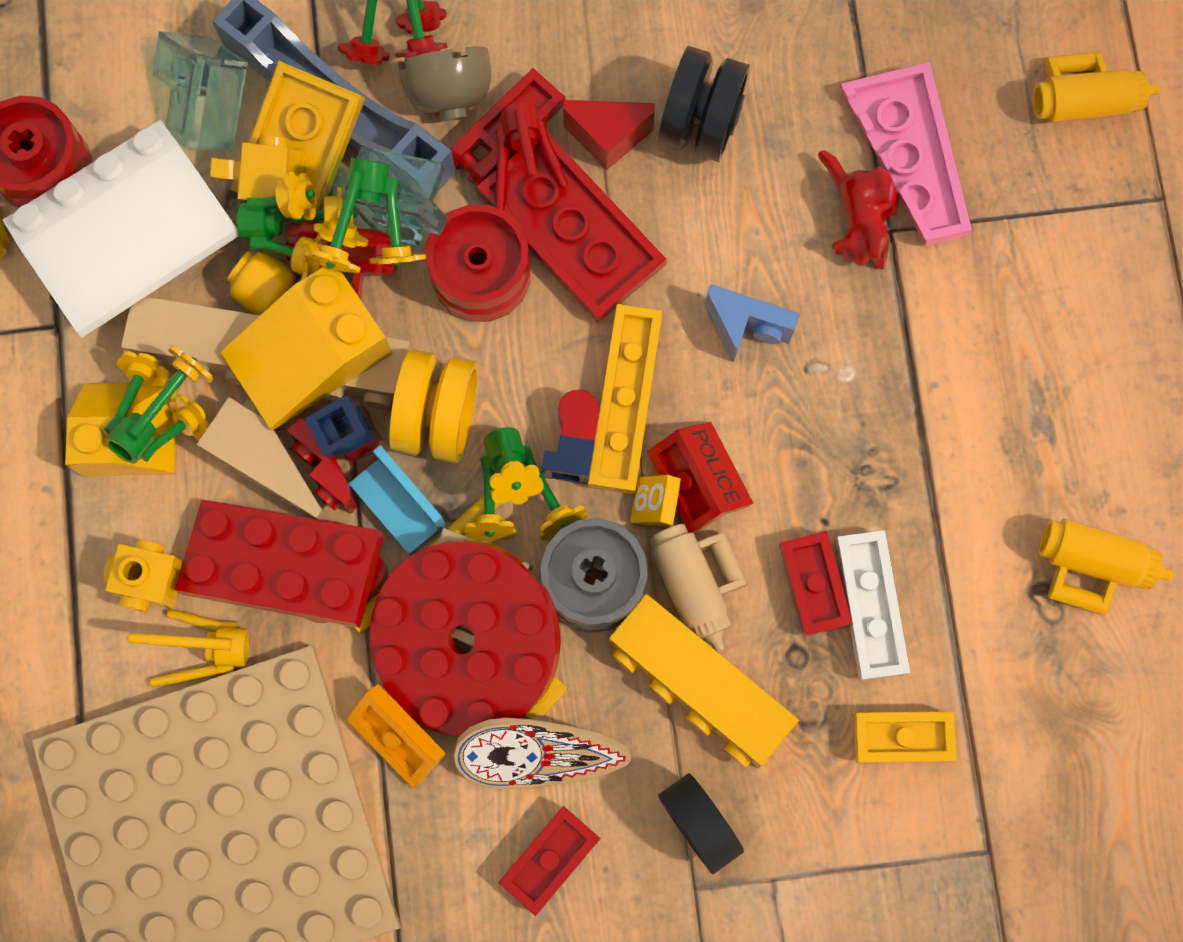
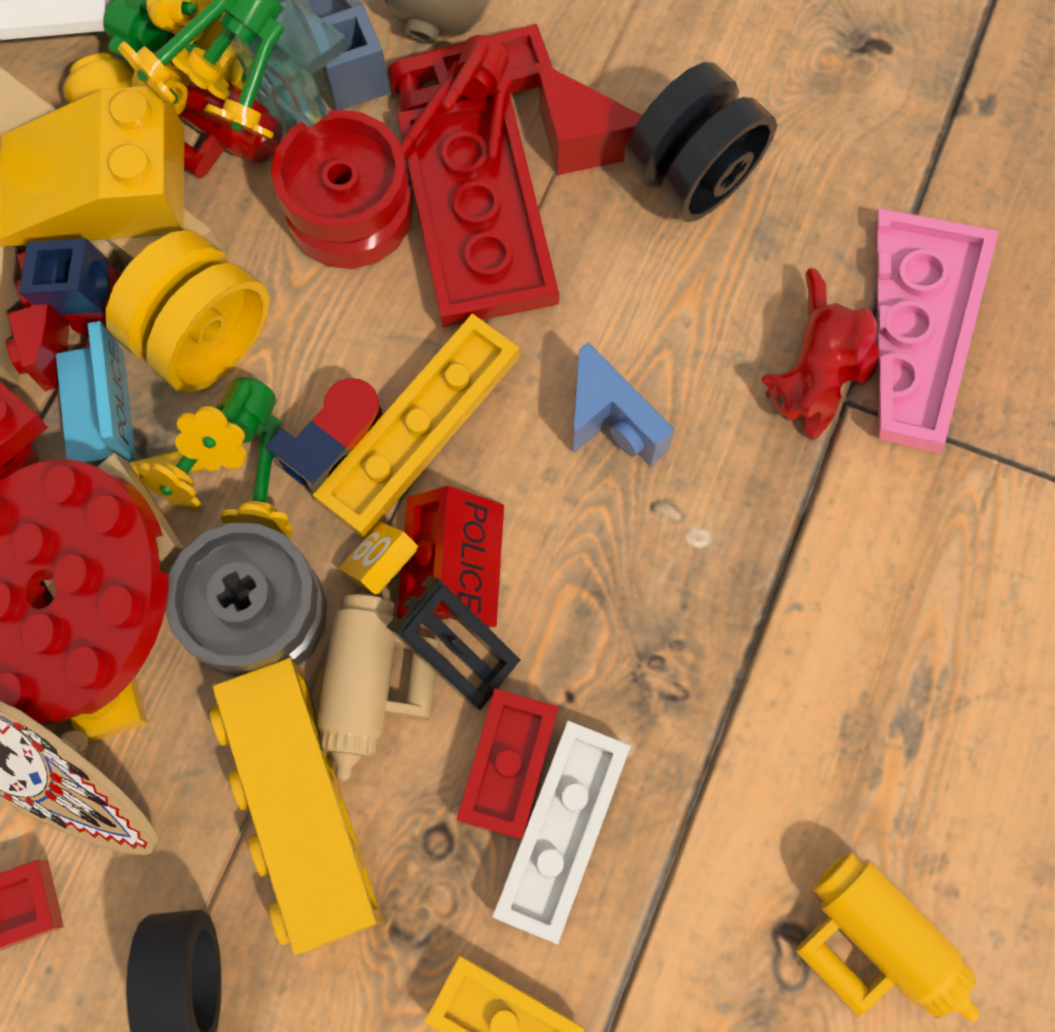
camera: 30 degrees right, 5 degrees down
(717, 521) = (421, 613): none -> black tile

